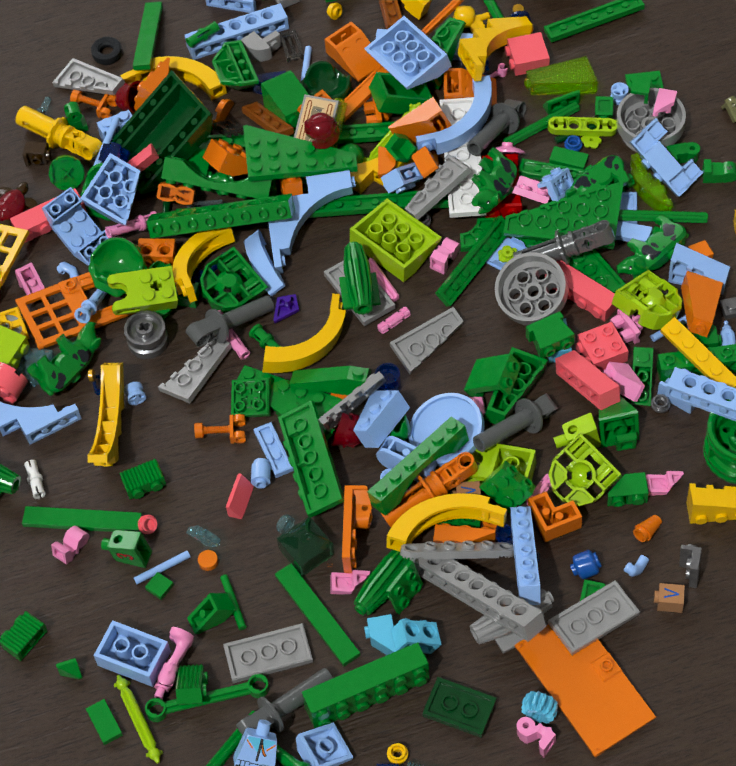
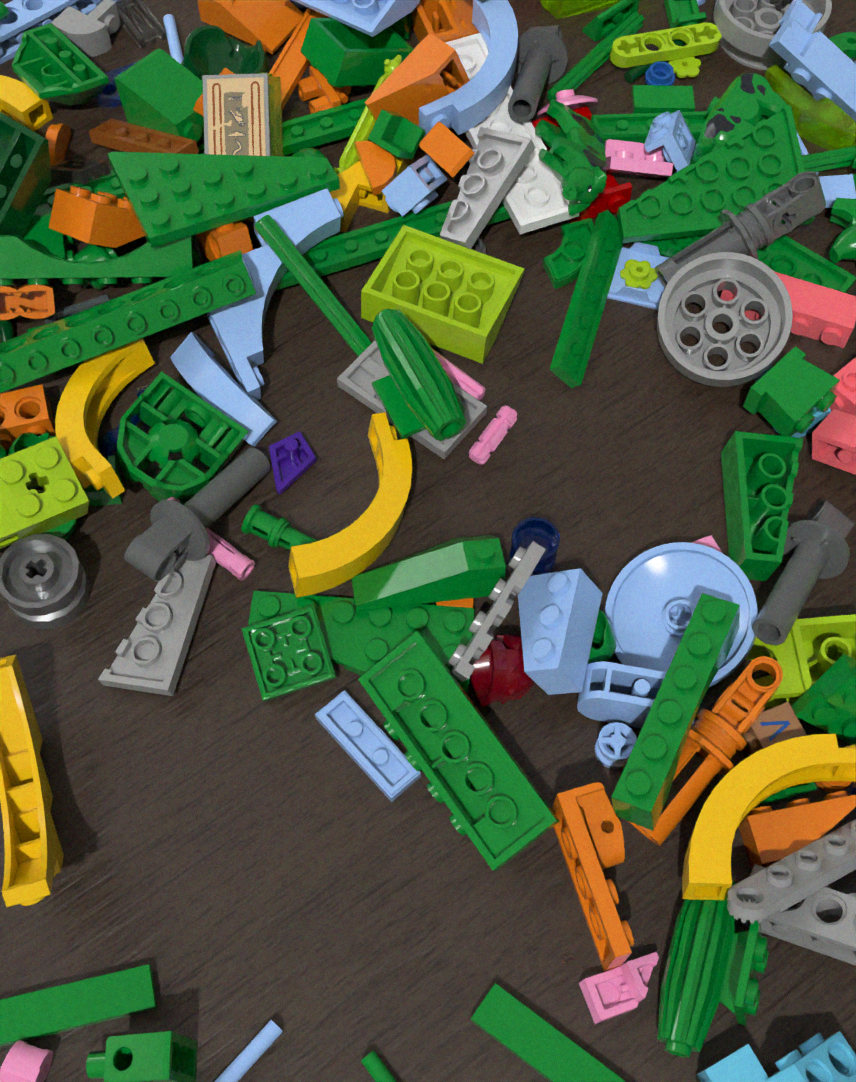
camera: 25 degrees left, 5 degrees up
(135, 393) = (56, 706): light blue wheel -> none
(142, 479) = (129, 889): green brick -> none
(147, 524) = (170, 987): coral plate -> none
(203, 536) = (291, 978): clear light blue slope -> none
(208, 560) = (321, 1027): orange tile -> none
(236, 420) = (277, 705): orange bar -> none
(239, 497) = (339, 868): coral slope -> none
(260, 473) = (363, 804): light blue brick -> none
(285, 523) = (452, 900): clear light blue tile -> none
(305, 546) = (512, 938): clear green piece -> none
(322, 129) = (256, 124): dark red helmet -> none
(325, 218) = (312, 284): none -> green axle
(425, 339) = (562, 458): light grey wing -> none
(439, 259) = (534, 301): bright pink leg -> none
(493, 374) = (723, 491): green panel -> none

